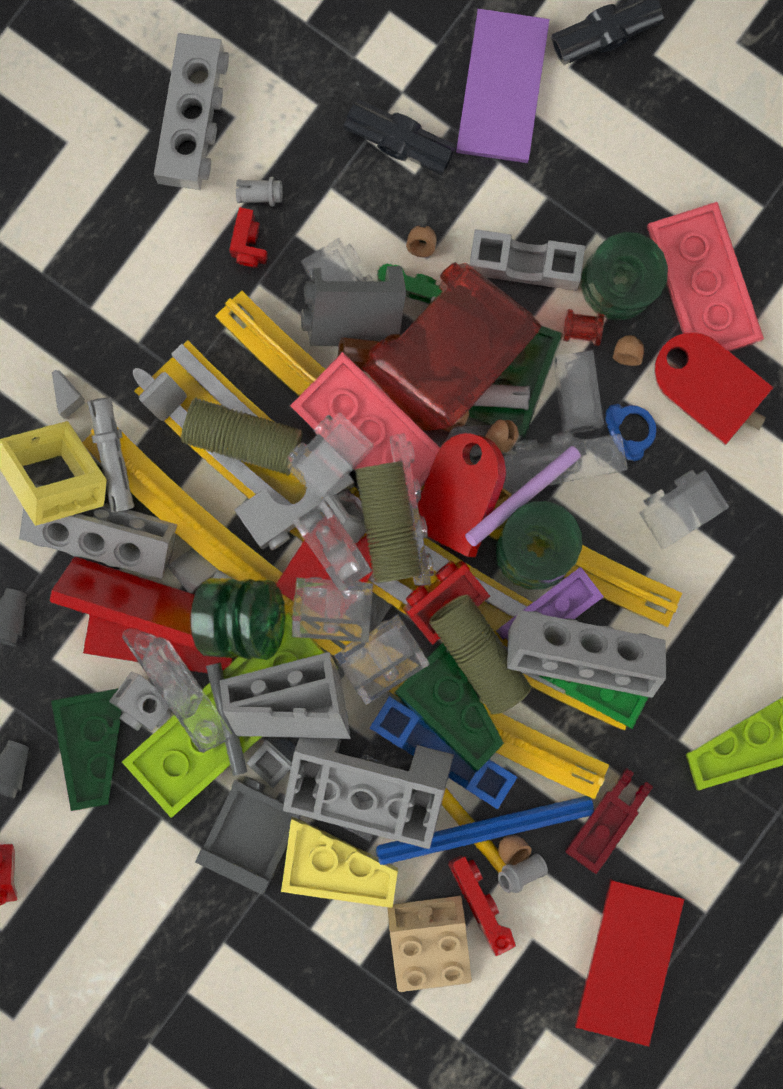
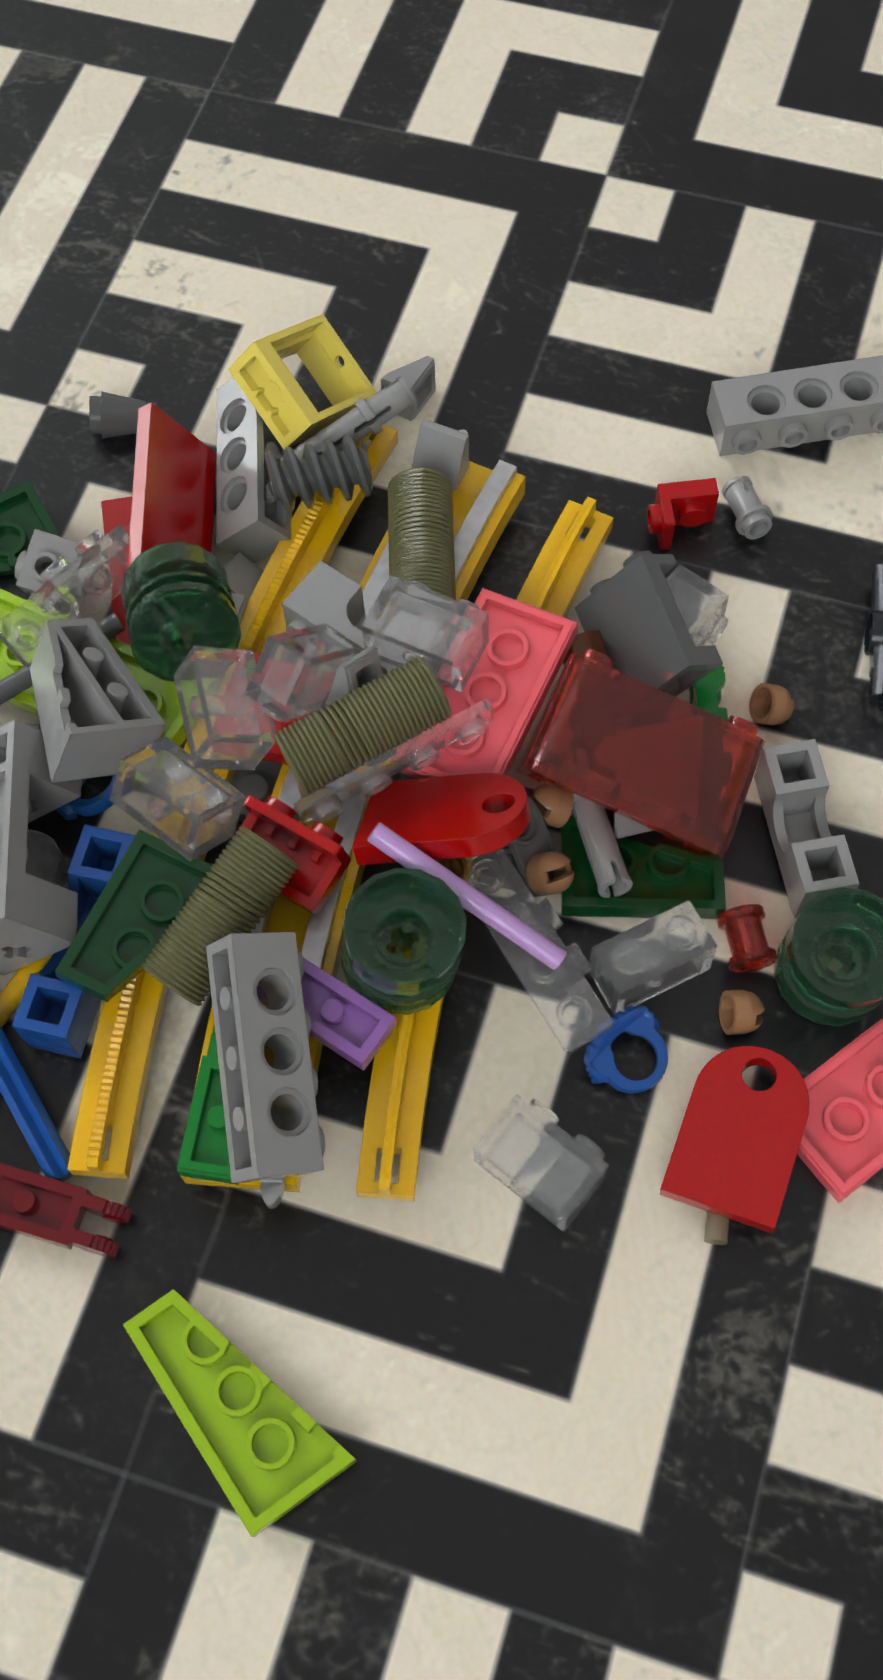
camera: 70 degrees right, 20 degrees down
(150, 487) = (319, 473): none -> dark grey piece

